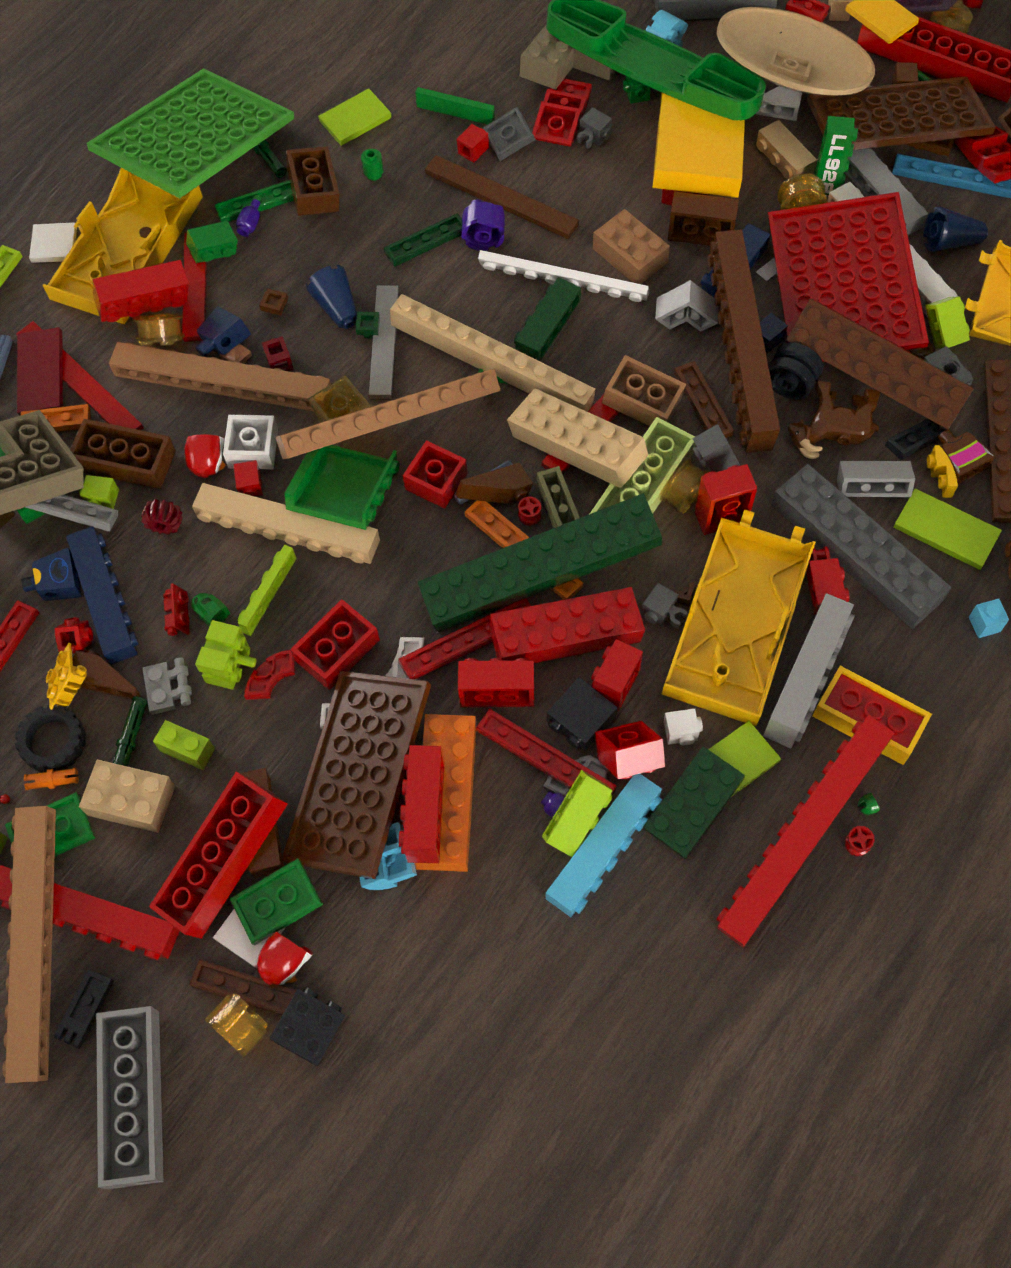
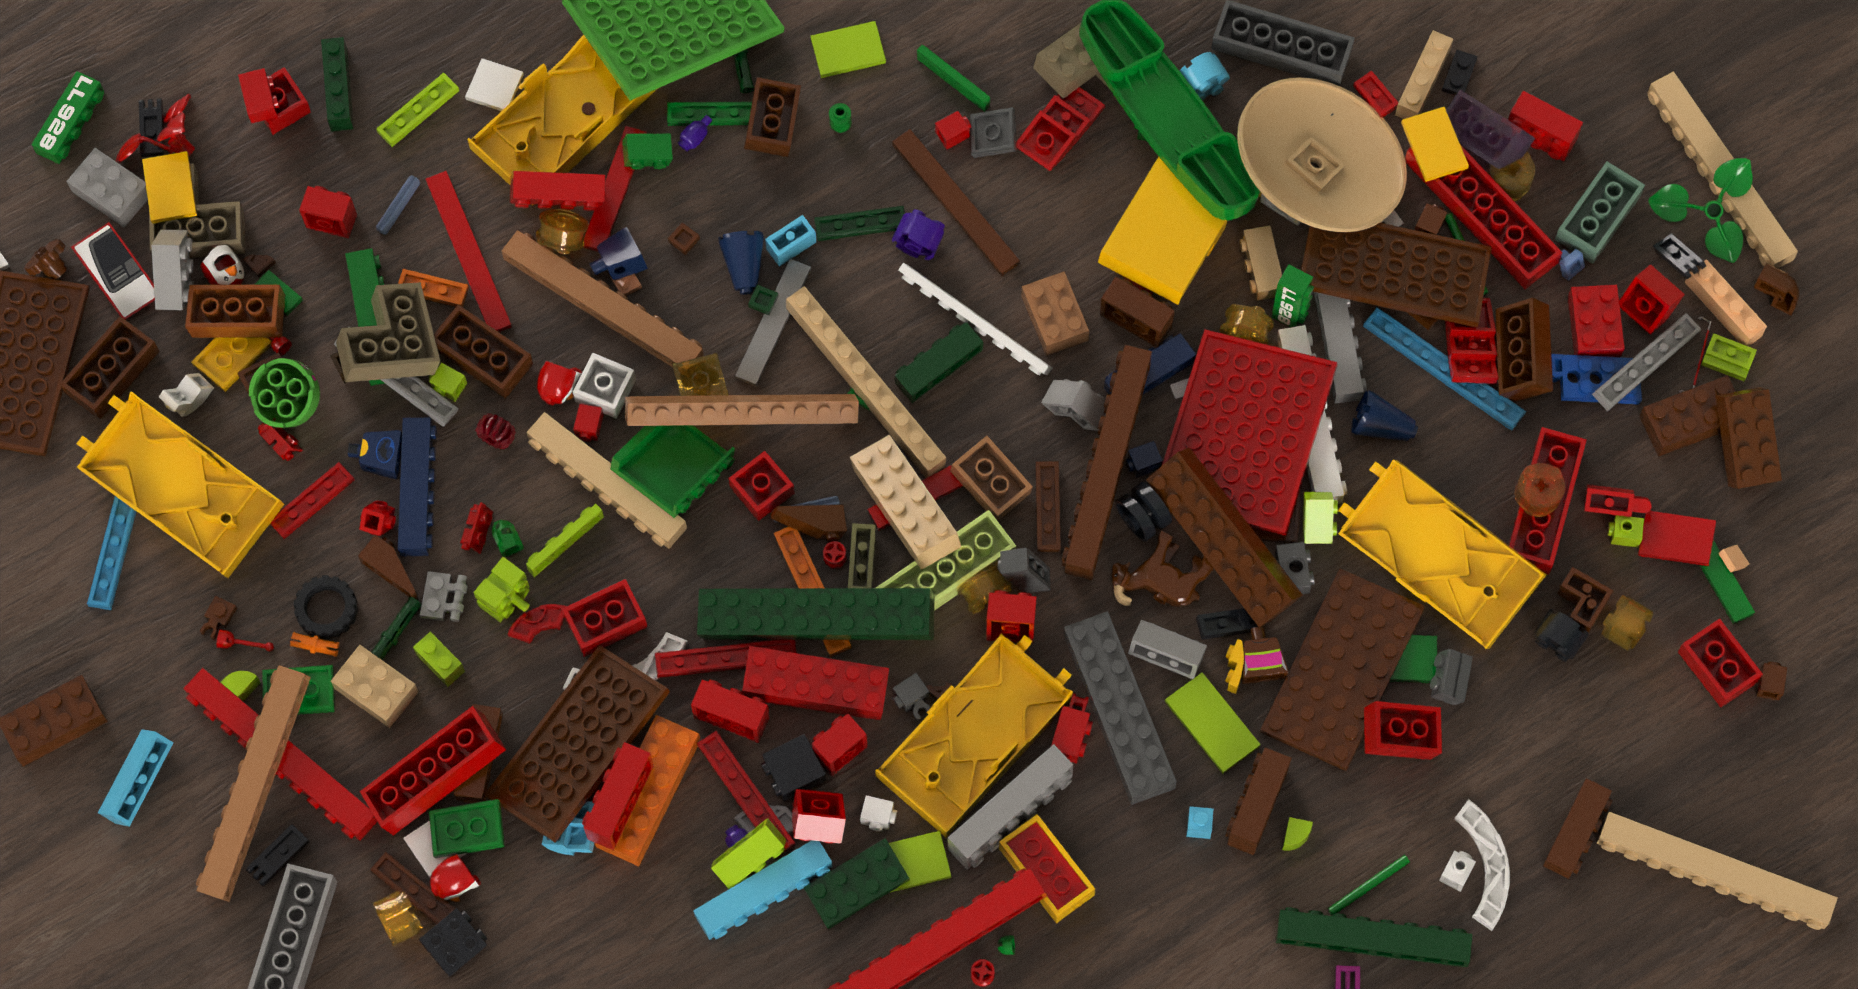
camera: 20 degrees right, 5 degrees up
(39, 370) = (434, 230): dark red tile -> none
(64, 679) = (355, 557): yellow hinge -> none
(277, 354) = (663, 291): dark red brick -> none
(371, 268) = (790, 240): none -> medium azure brick
(594, 128) = (1083, 159): dark grey brick -> none

